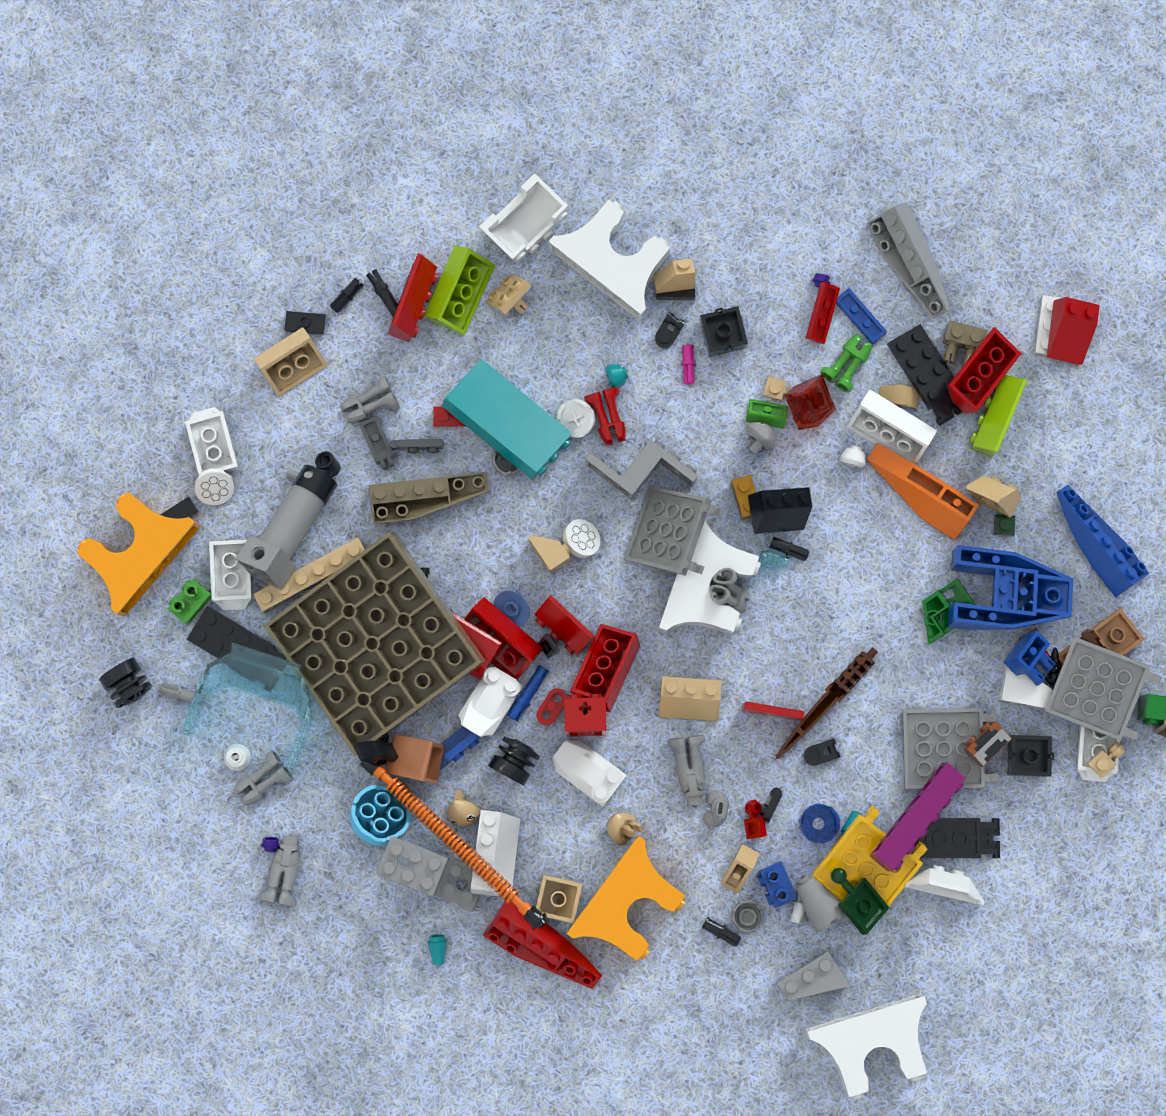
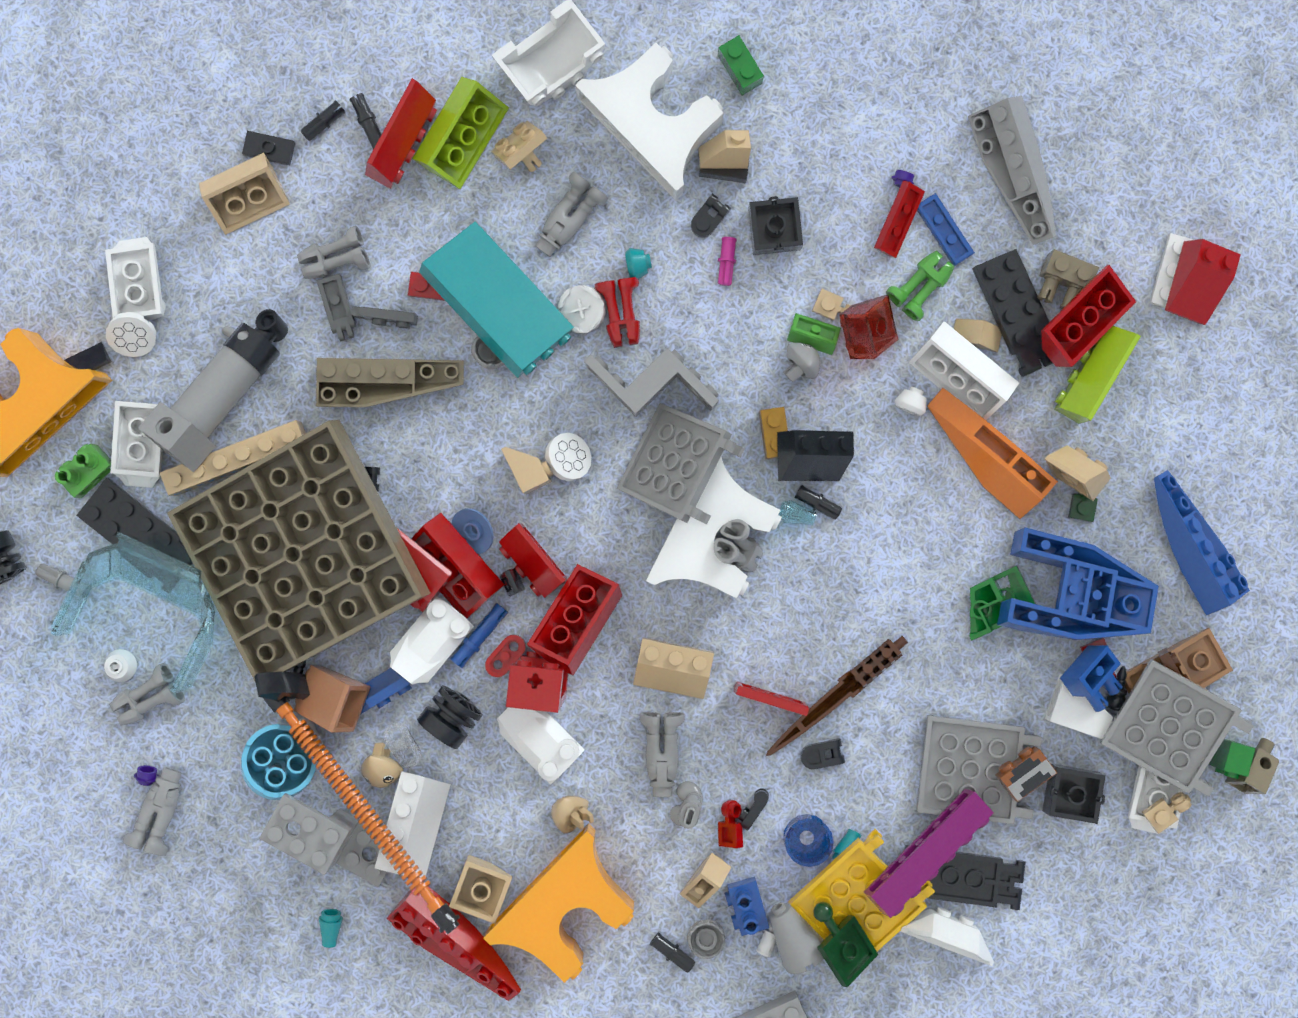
camera: 10 degrees right, 5 degrees up
(548, 354) = (559, 226): none -> light grey piece
(677, 207) = (740, 65): none -> green brick

